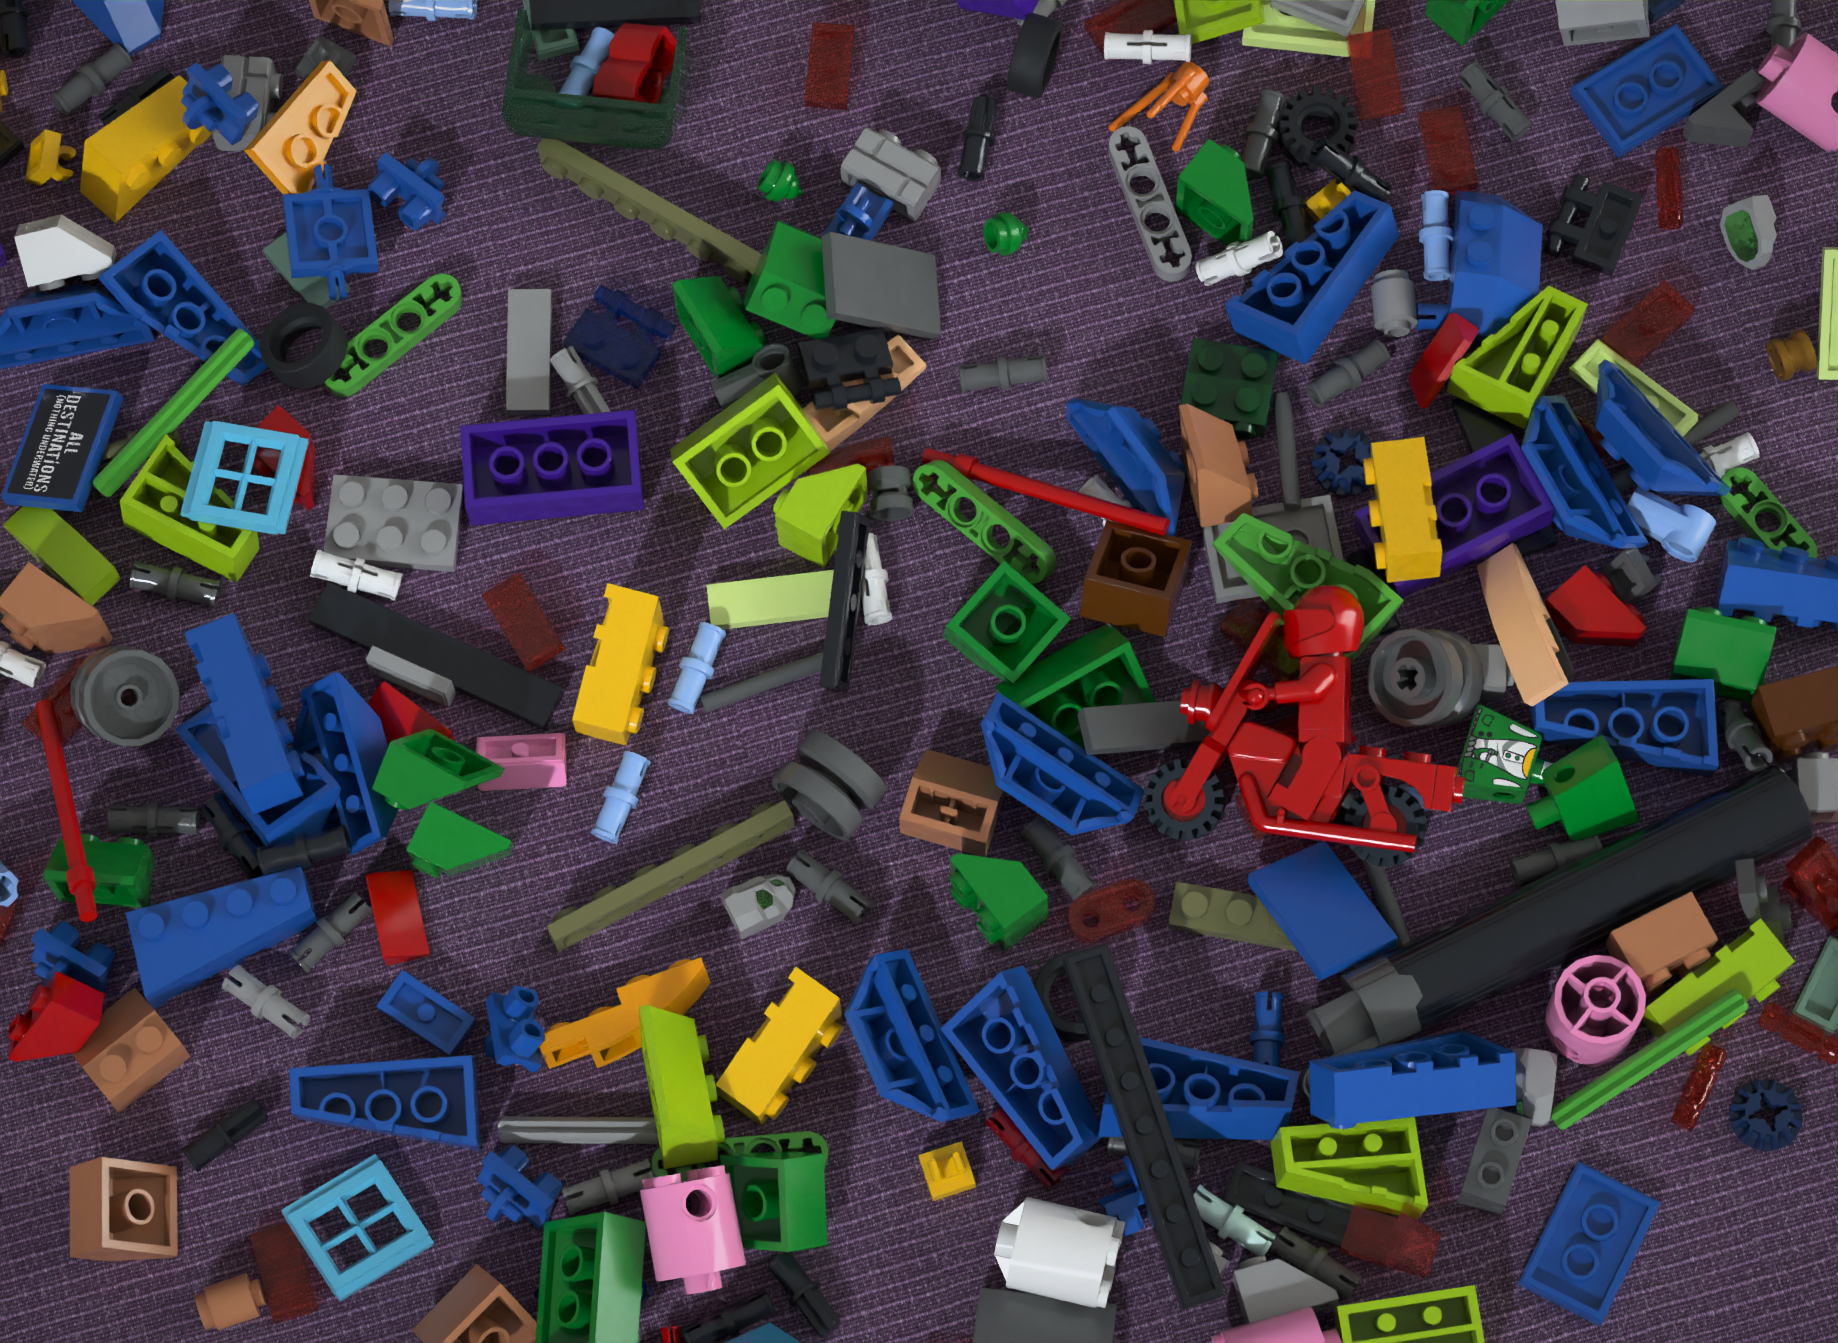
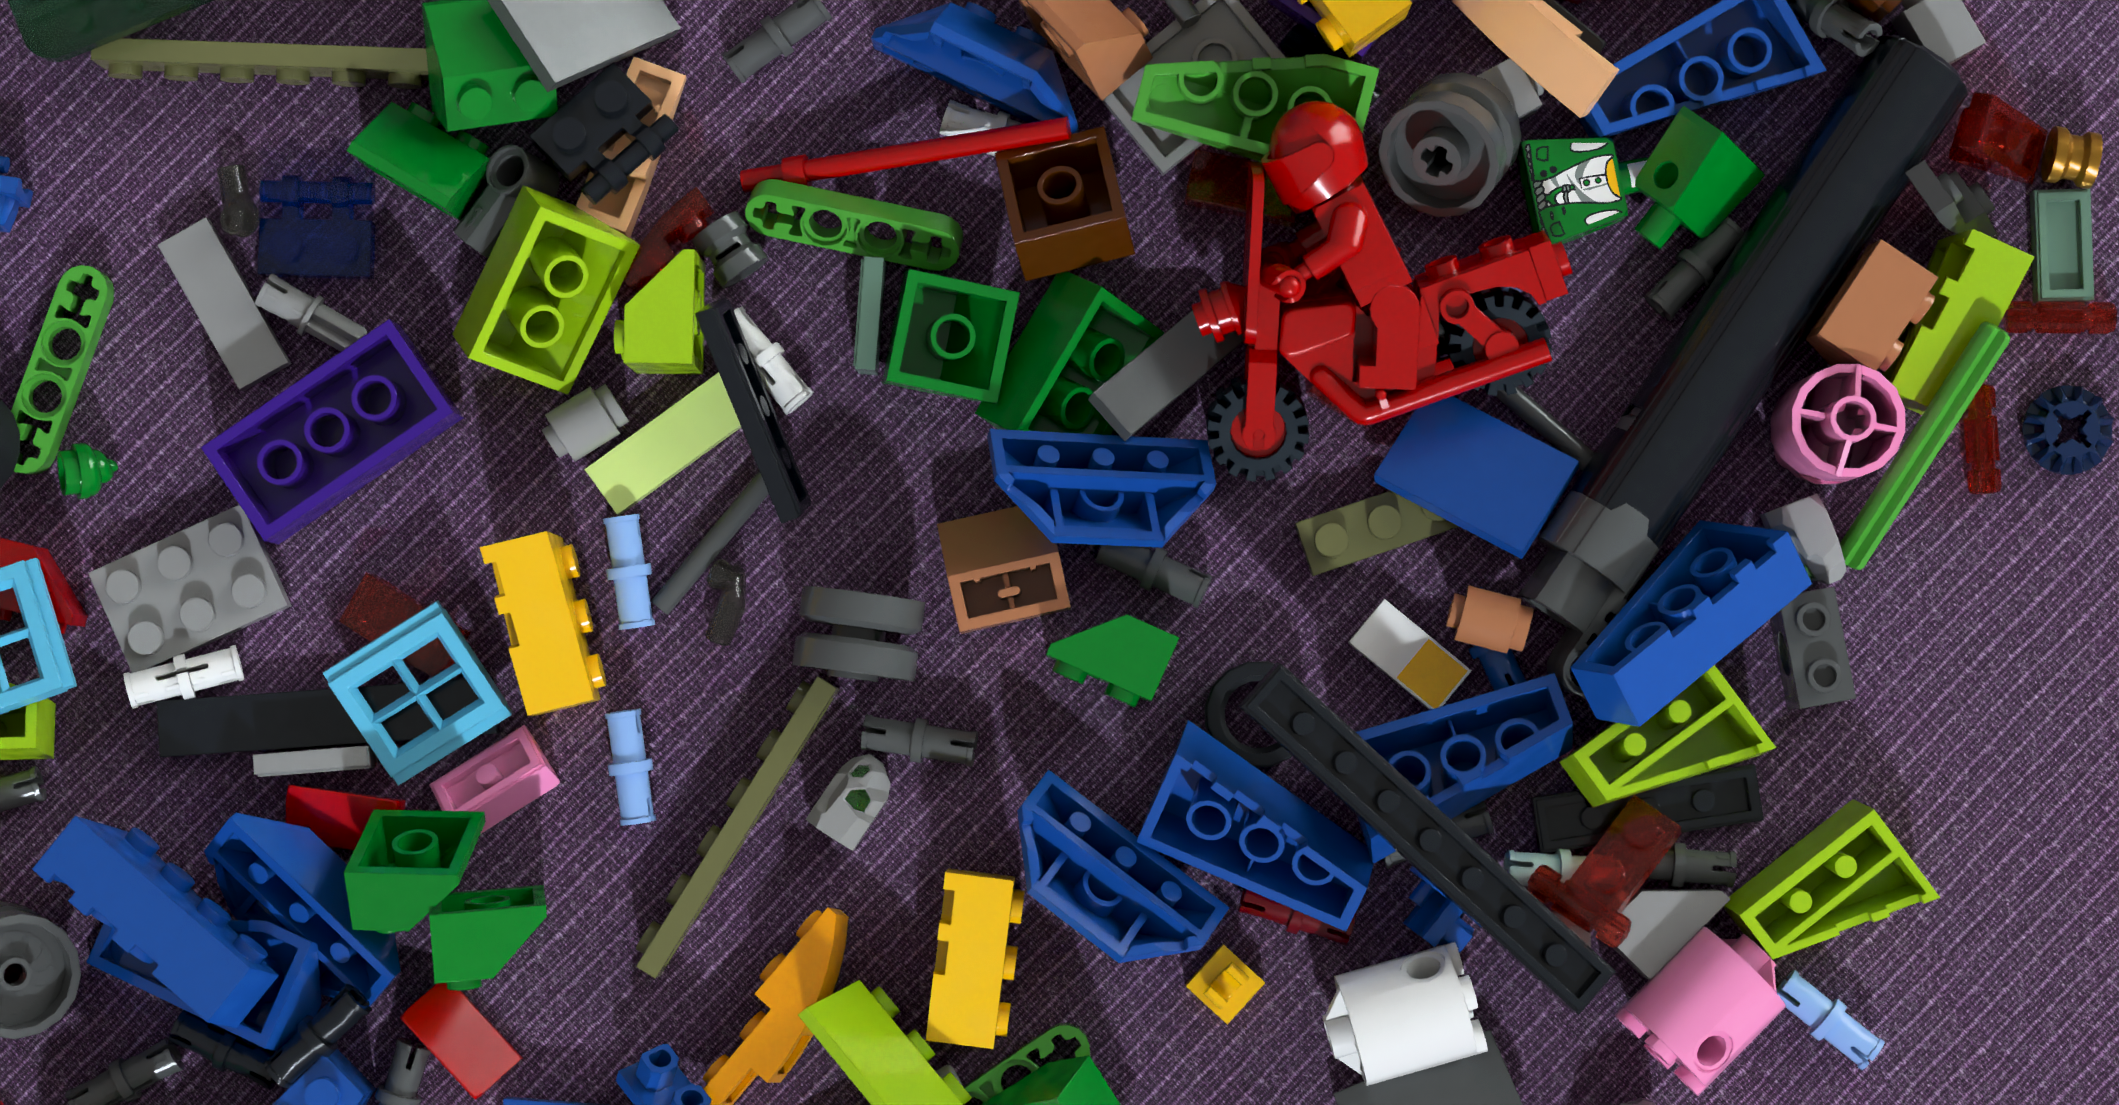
camera: 30 degrees left, 15 degrees up
(371, 407) = (83, 470): none -> green plate
(506, 627) = (389, 651): none -> medium azure piece
(575, 295) = (239, 211): none -> clear smoke arm
(724, 553) = (584, 422): none -> light grey brick
(753, 726) = (732, 601): none -> clear smoke arm
(960, 585) = (869, 315): none -> sand green tile
(1109, 908) = (1243, 595): clear red plate -> none
(1205, 1013) = (1409, 656): none -> white tile
(1227, 1240) = (1579, 906): none -> clear red axle
(1274, 1011) = (1489, 620): none -> nougat brick
(1278, 1229) = (1627, 854): none -> clear red plate
(1391, 1241) = (1746, 800): clear red slope -> none
(1589, 1243) = (1953, 678): blue tile -> none

